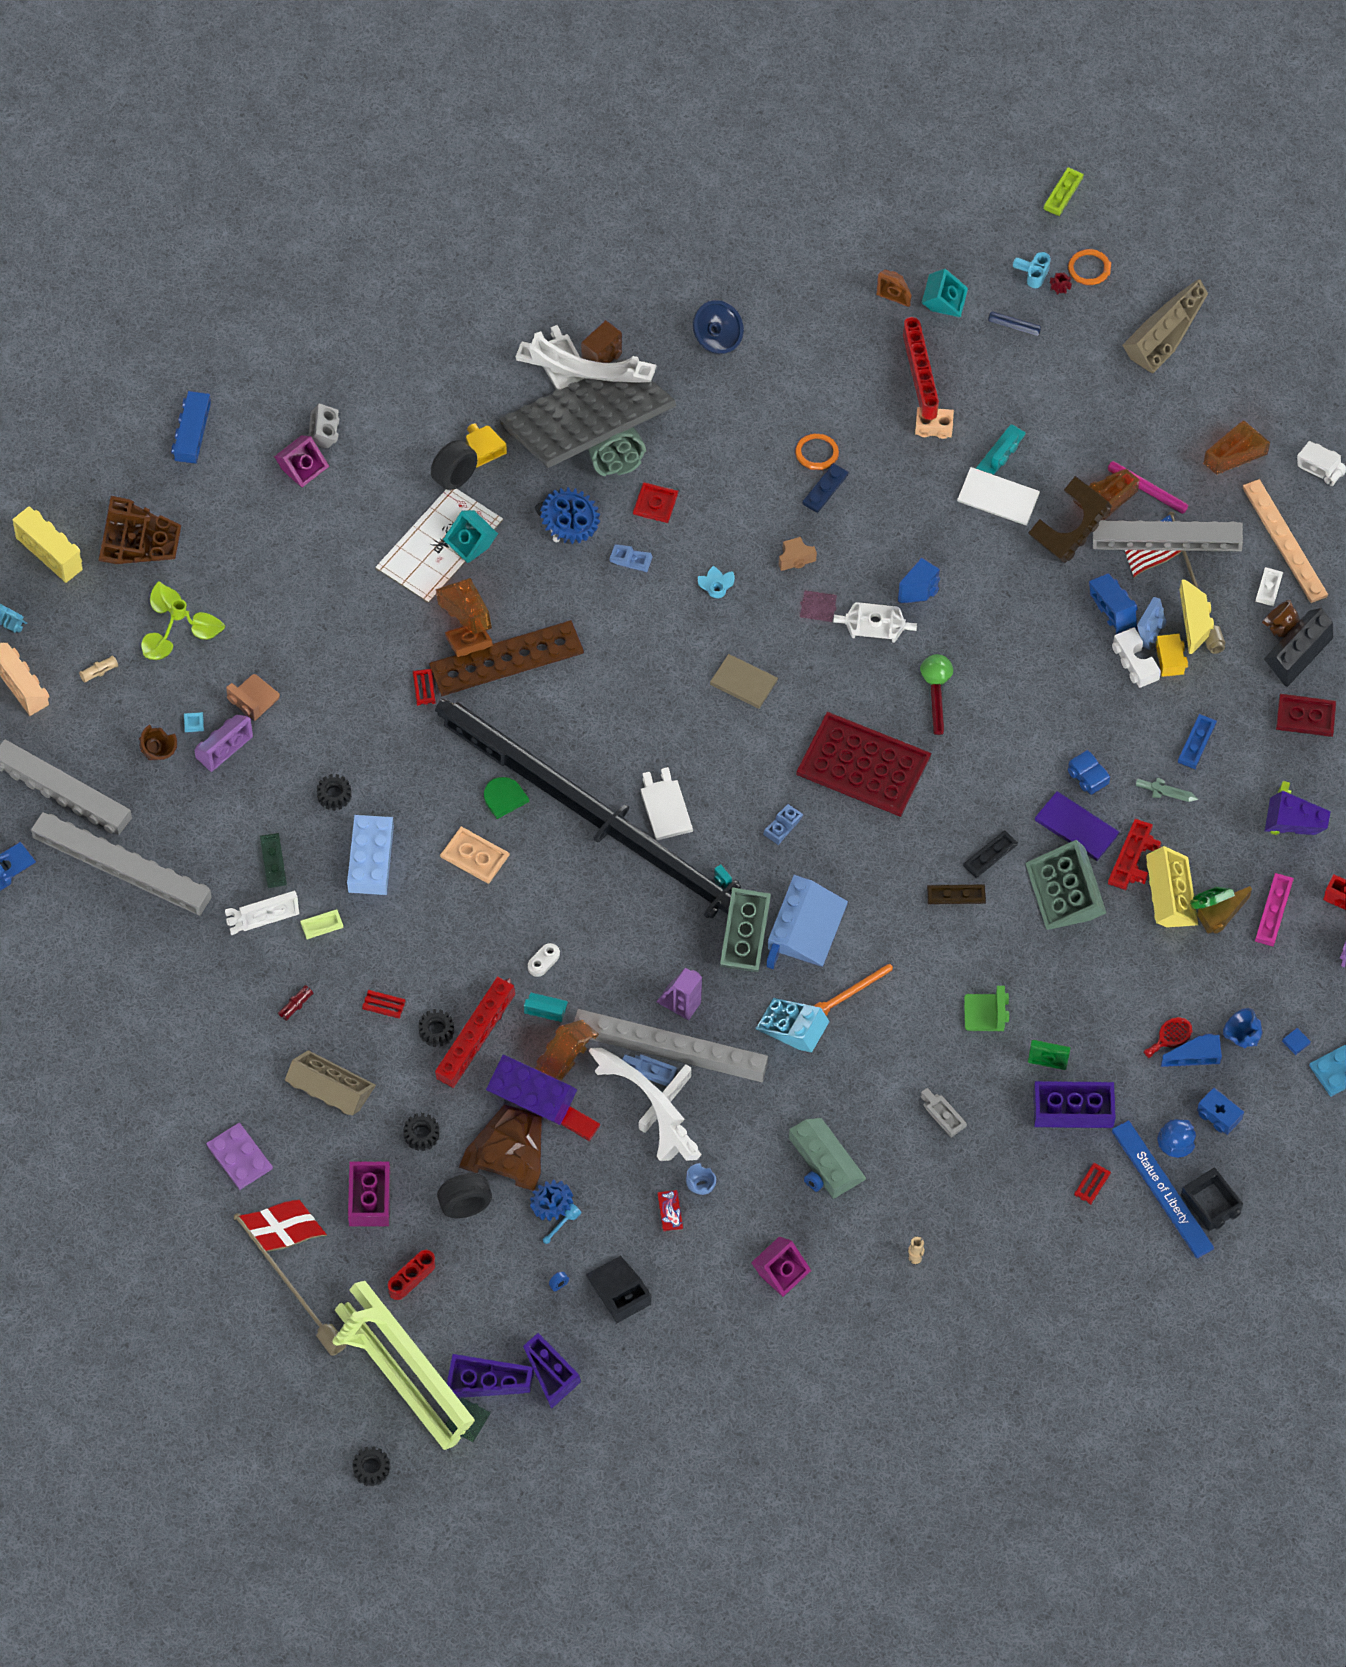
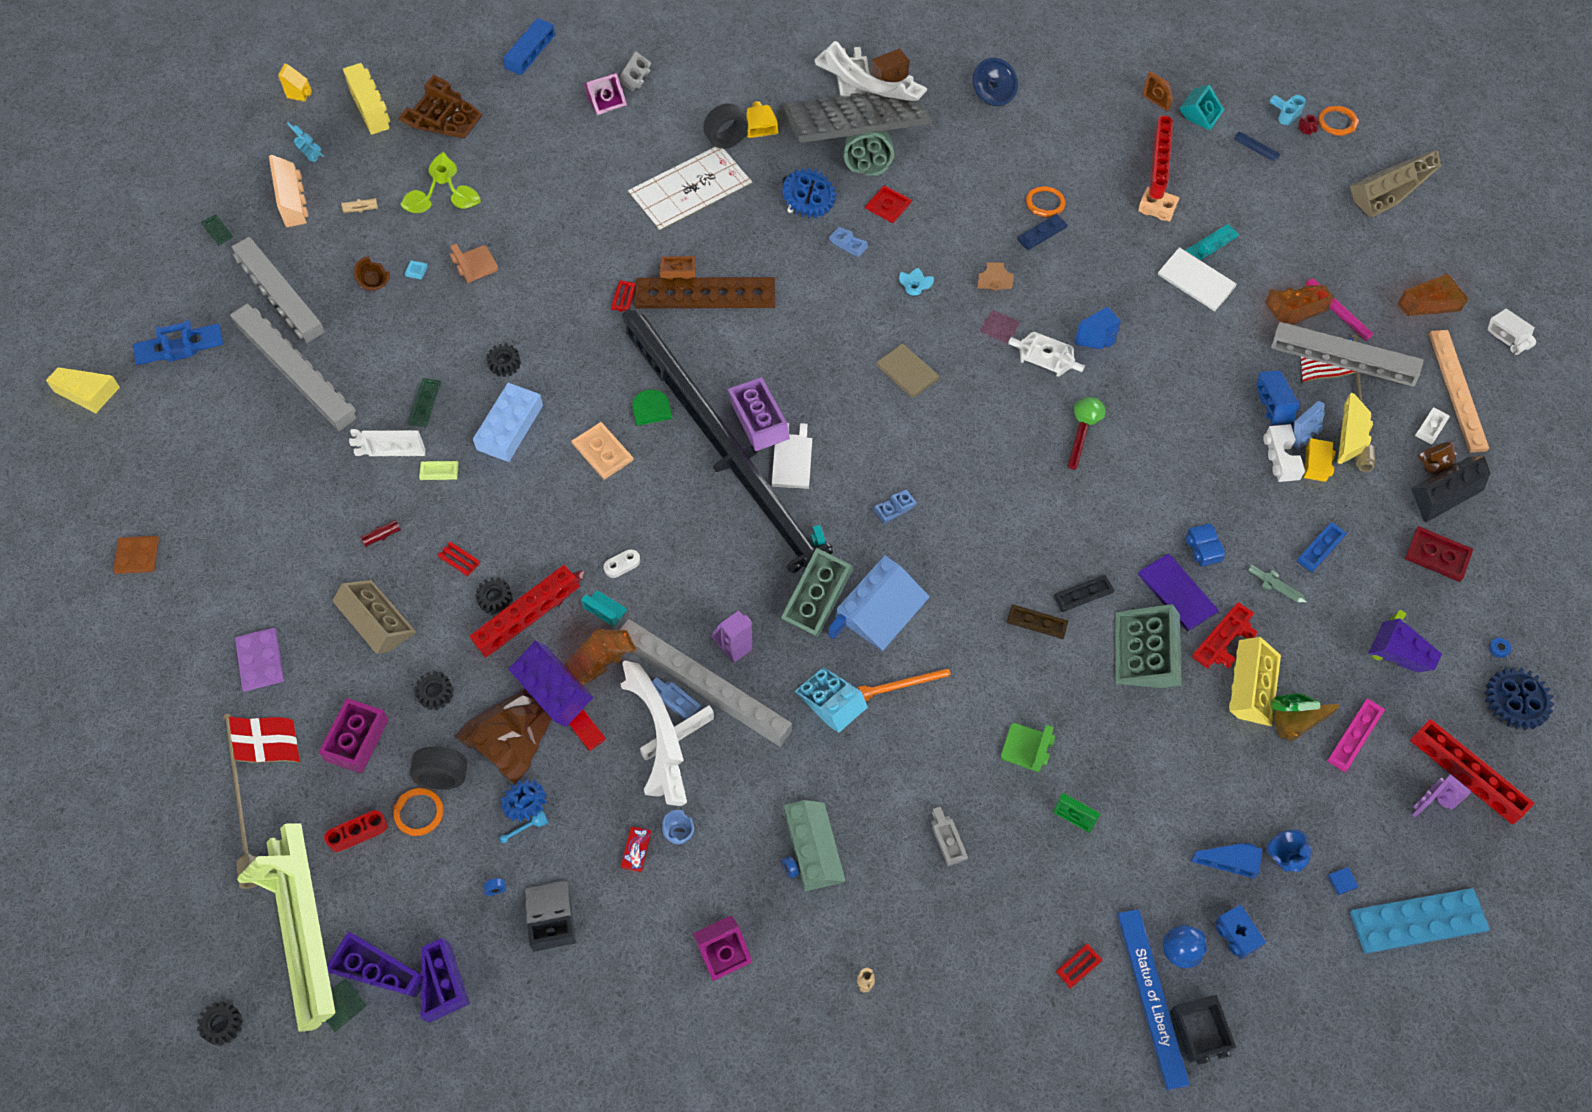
camera: 20 degrees right, 0 degrees up
(64, 1097) = (136, 554): none -> dark orange plate
(224, 742) = (430, 292): medium lavender slope -> none
(438, 1239) = (401, 802): none -> orange piece
(465, 604) = (686, 237): clear orange wedge -> none
(470, 535) = (716, 185): teal slope -> none
(618, 771) = (759, 414): none -> medium lavender brick
(863, 764) = (991, 475): dark red plate -> none
(1063, 191) = (1332, 57): lime plate -> none
(1065, 544) = (1246, 335): dark brown arch -> none
(1074, 1104) = (1086, 874): dark purple brick -> none
(1164, 1043) = (1182, 842): red piece -> none

